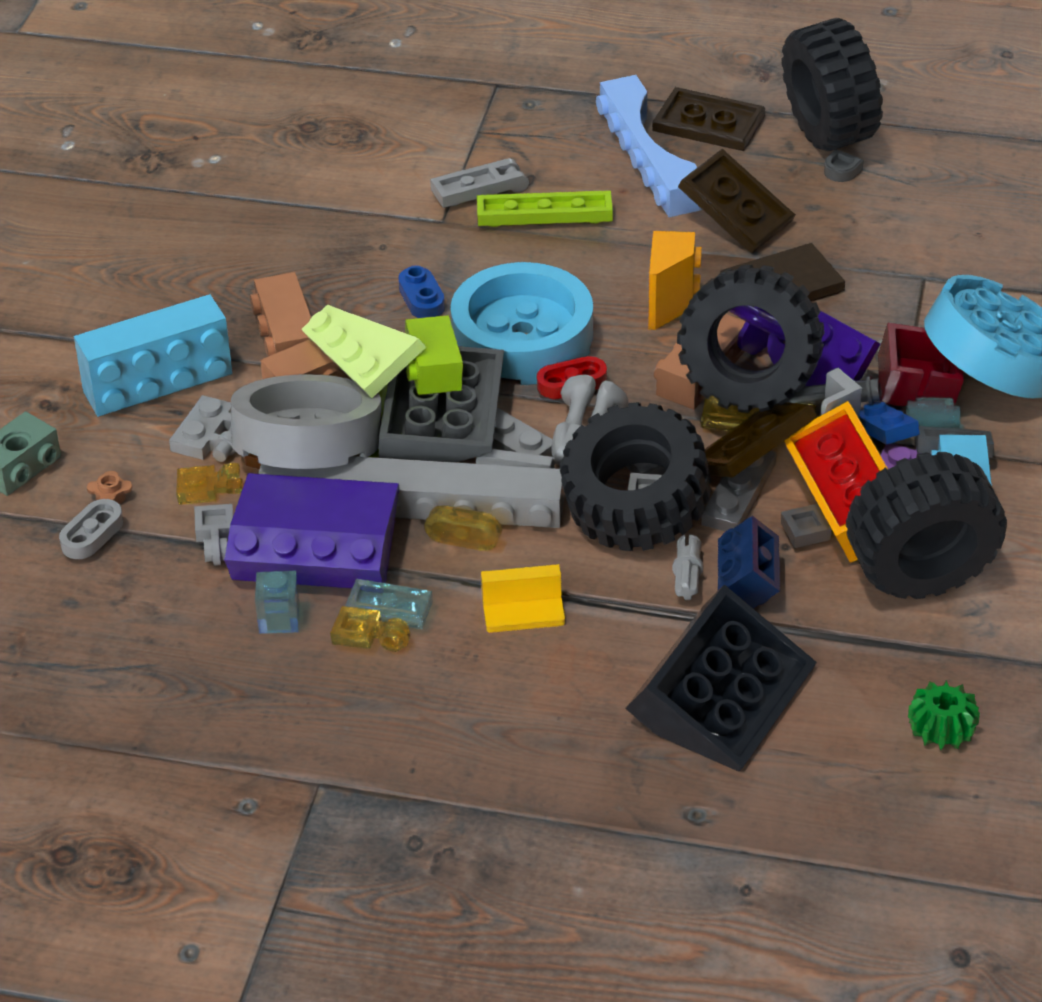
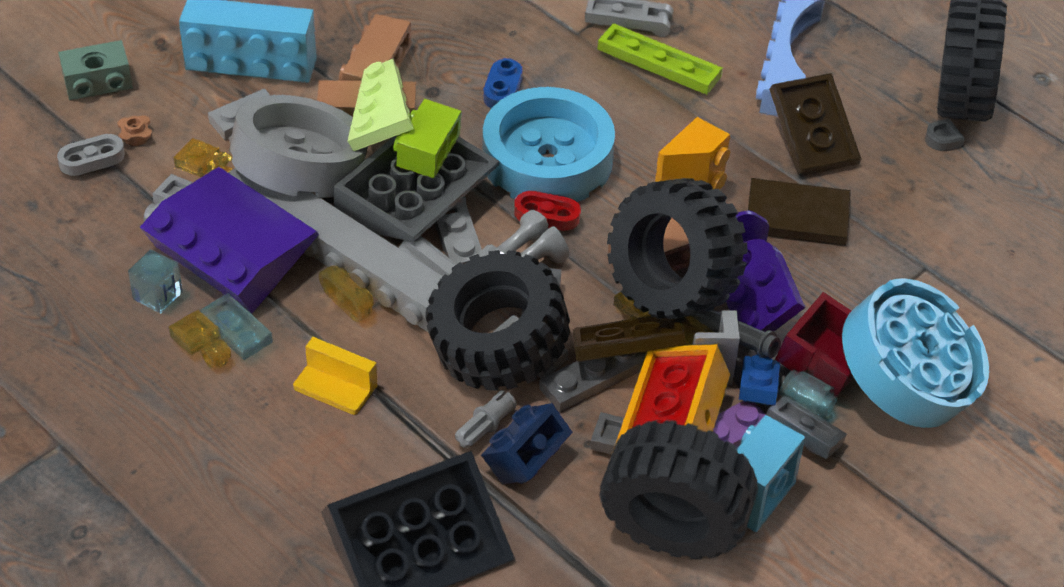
camera: 30 degrees right, 5 degrees up
(709, 118) = (868, 44): dark brown tile -> none

